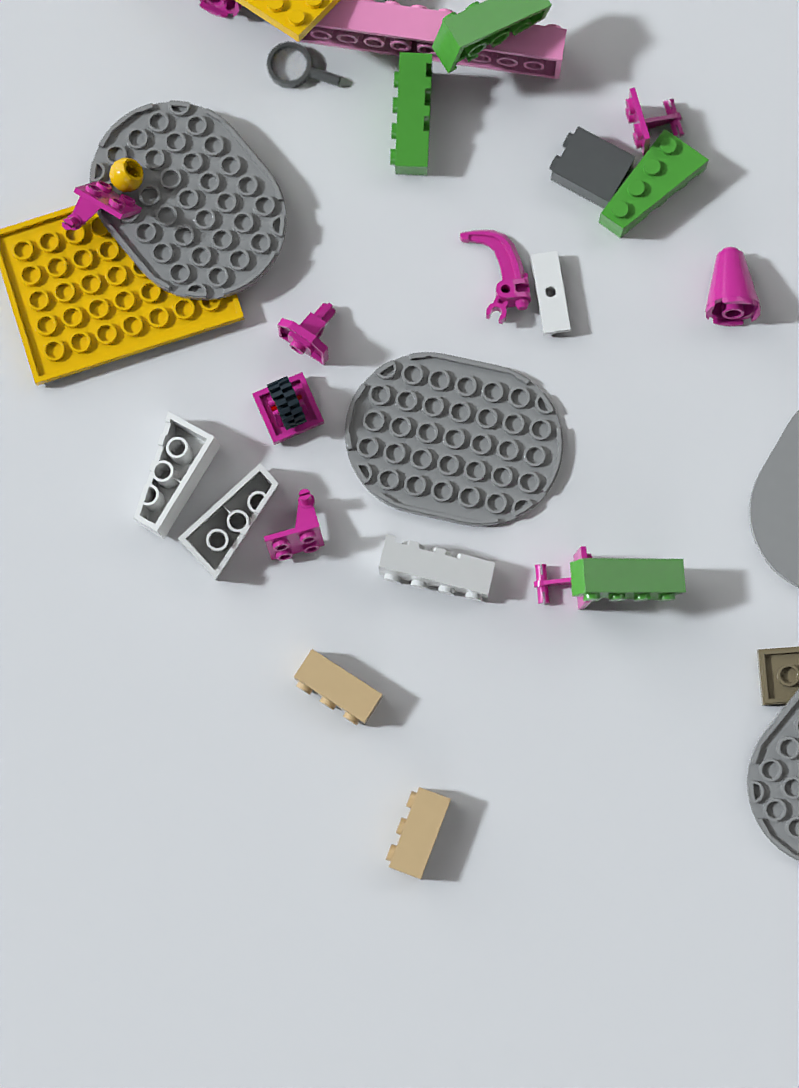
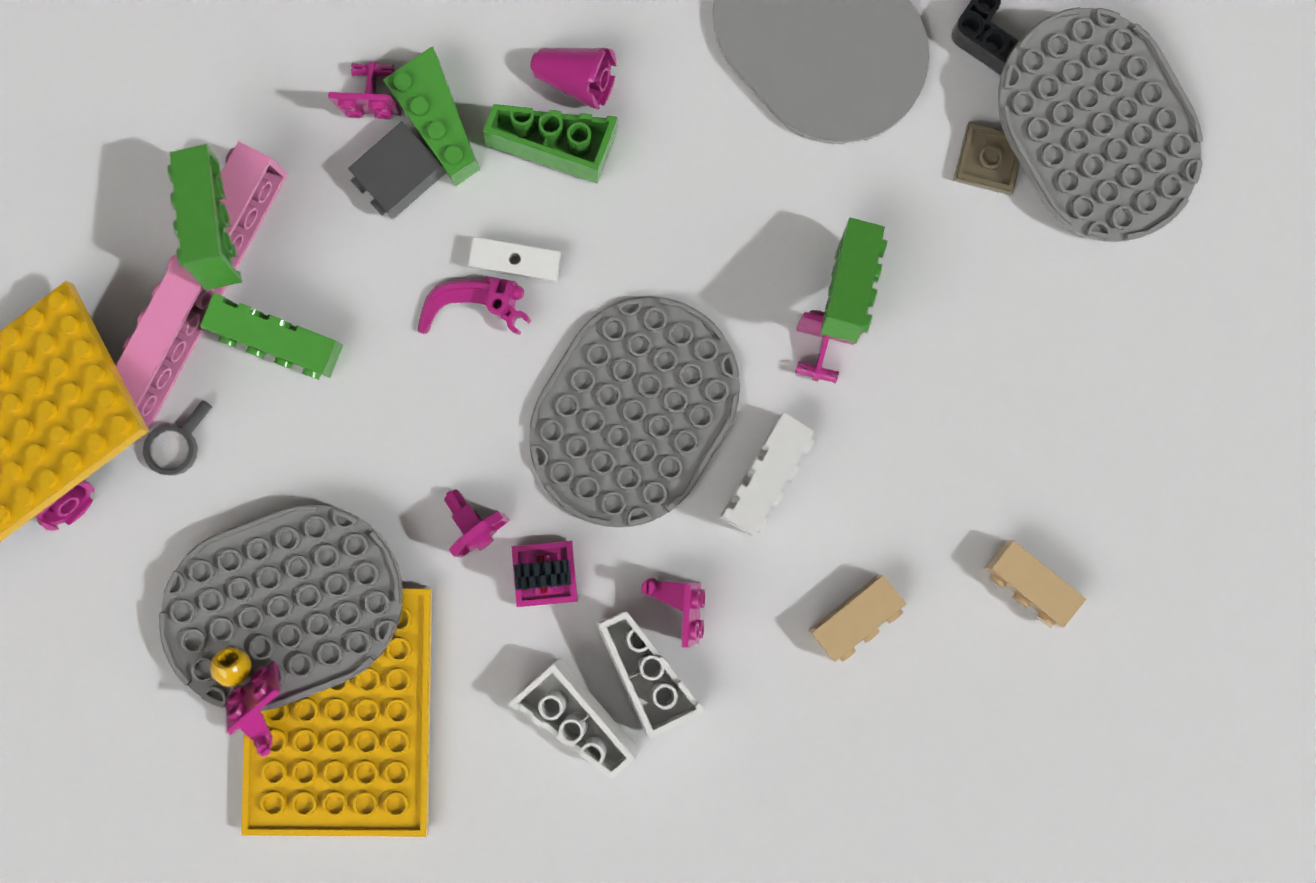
camera: 75 degrees left, 5 degrees up
(666, 291) = (553, 139): none -> bright green wedge

